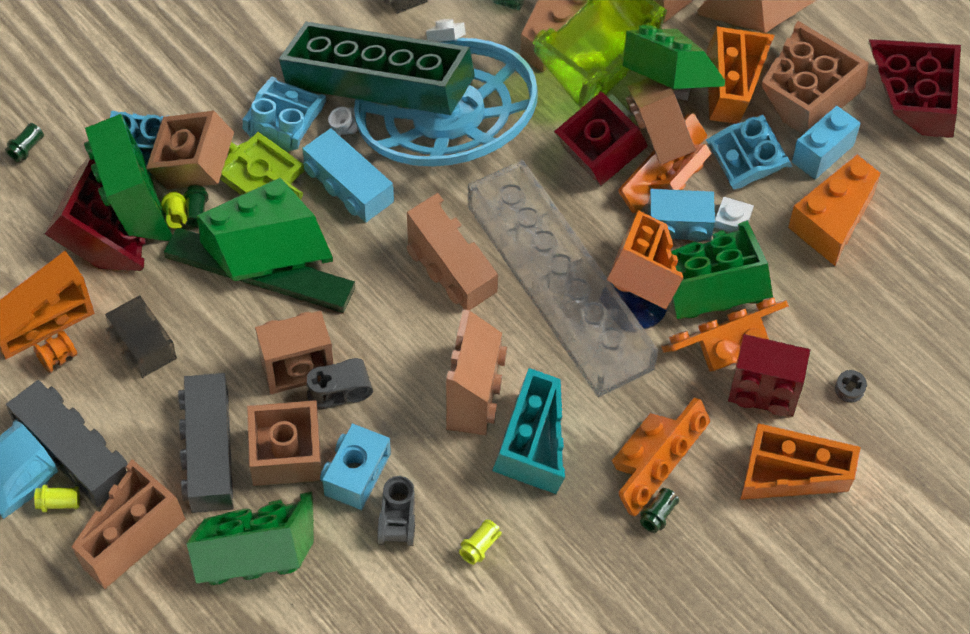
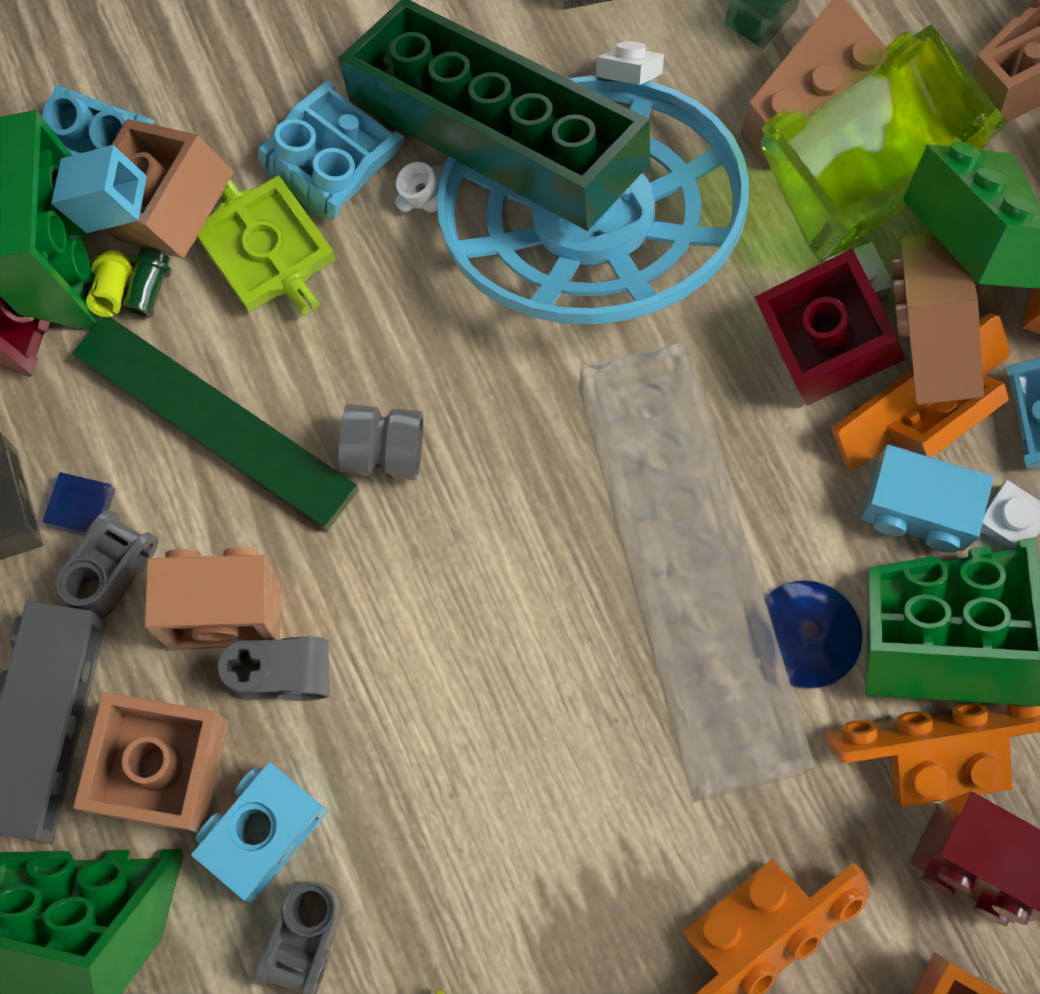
camera: 15 degrees right, 15 degrees up
(164, 150) = (99, 189): none -> medium azure brick
(192, 331) = (77, 503): none -> clear blue tile
(222, 351) = (106, 554): none -> dark grey piece
(262, 233) = (230, 365): green wedge -> none
(348, 175) = (398, 288): medium azure brick -> none
(363, 254) = (380, 441): none -> dark grey wheel
(447, 255) = (519, 482): nougat wedge -> none
(474, 376) = (499, 723): nougat wedge -> none
(534, 435) = (563, 855): teal wedge -> none
(646, 262) = (838, 589): orange wedge -> none

